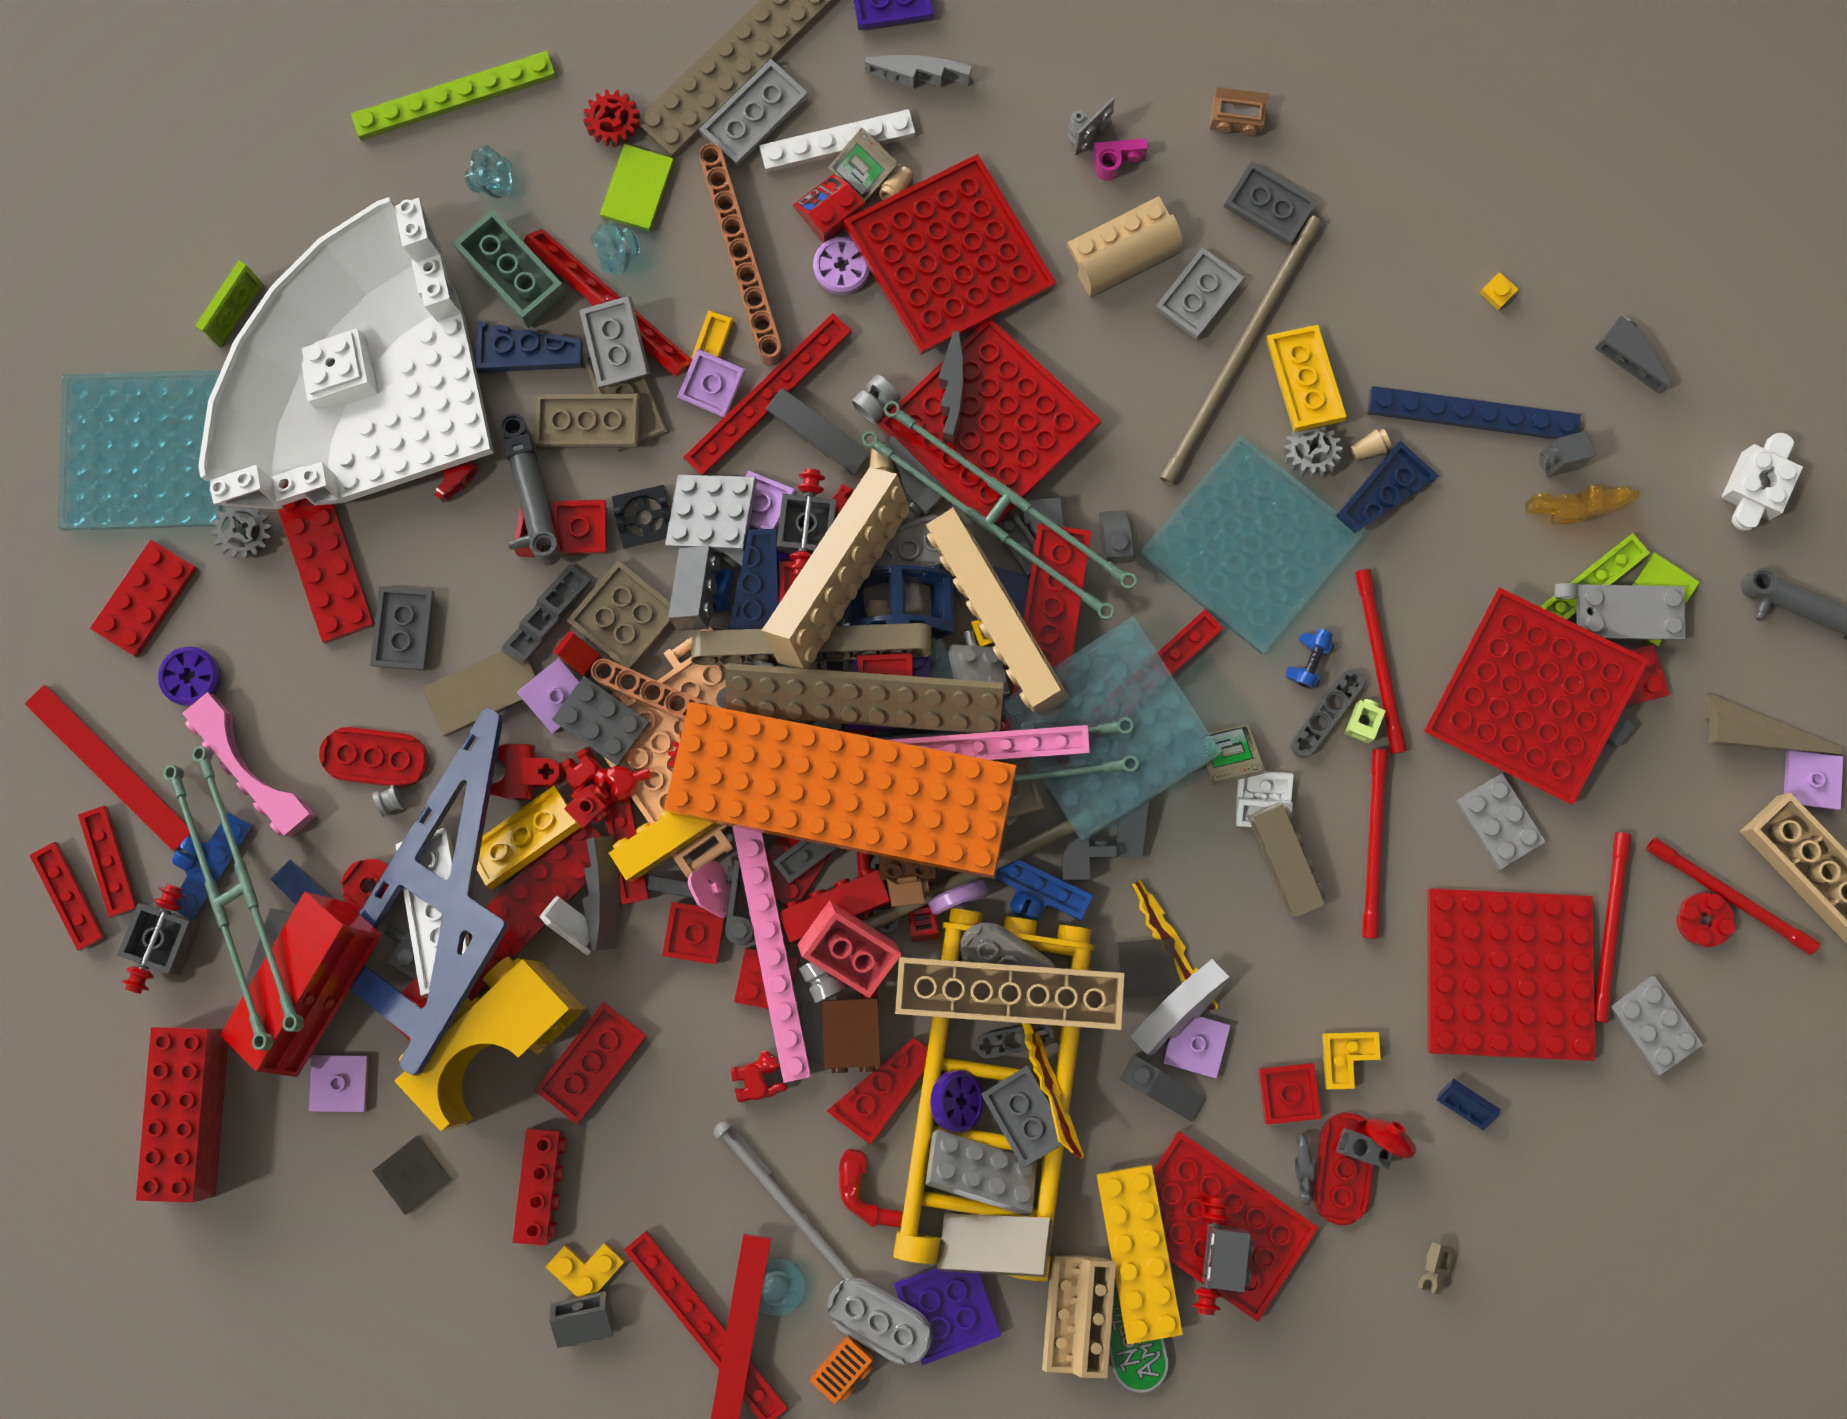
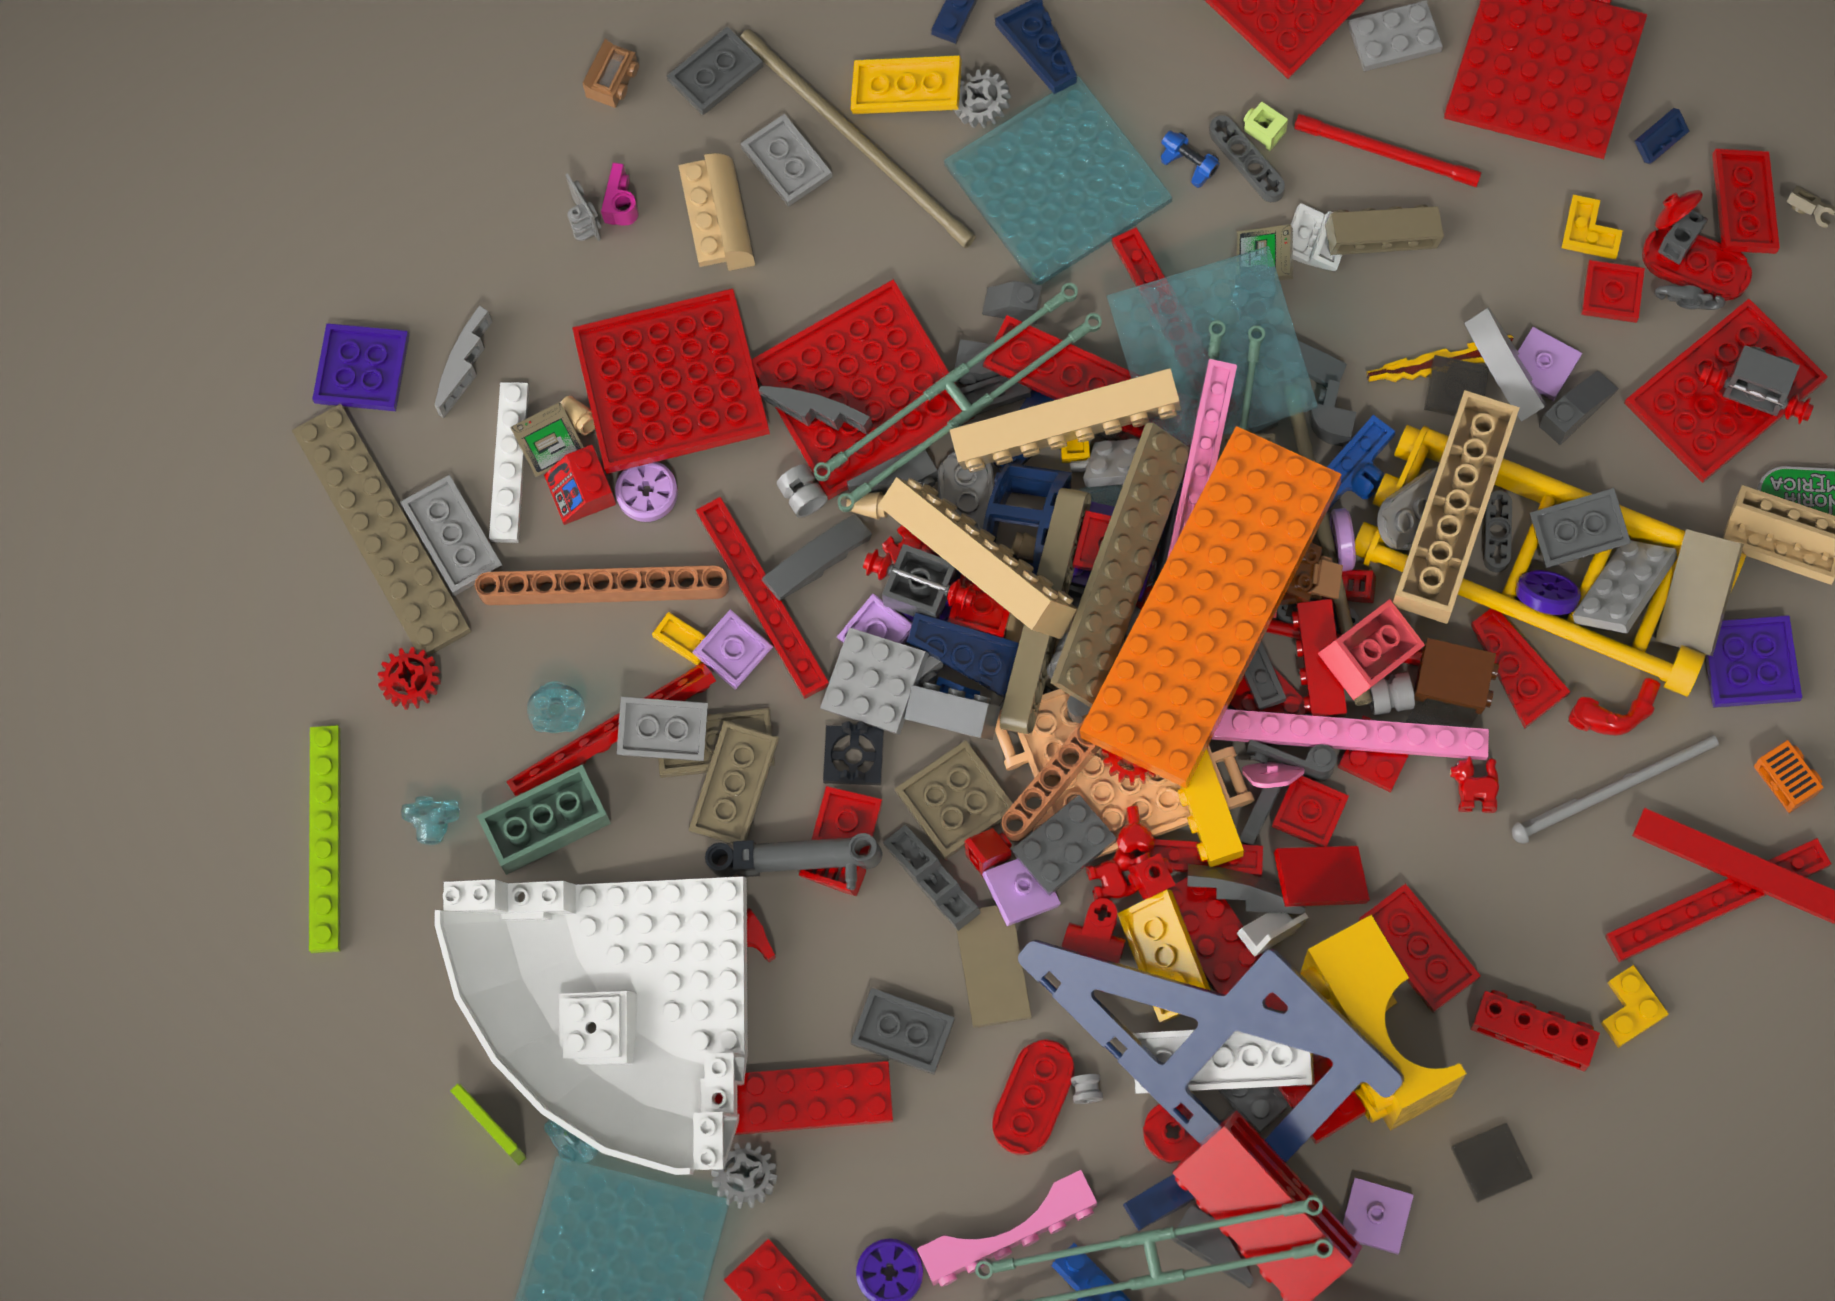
camera: 65 degrees left, 10 degrees down
(516, 350) = (632, 842): dark blue wing -> none
(581, 1319) = (1683, 1017): dark grey brick -> none
(631, 958) = (1321, 876): none -> red tile
(637, 188) = (493, 674): lime tile -> none
(782, 1287) = (1695, 812): clear light blue plate -> none
(879, 1321) = (1749, 726): light grey tile -> none
(1049, 1085) = (1554, 498): yellow sword -> none
(1140, 1254) = (1729, 462): yellow plate -> none
(1367, 594) = (1136, 90): red piece -> none
(1372, 445) = (991, 44): tan cone -> none
(1421, 1202) = (1745, 201): none -> red plate

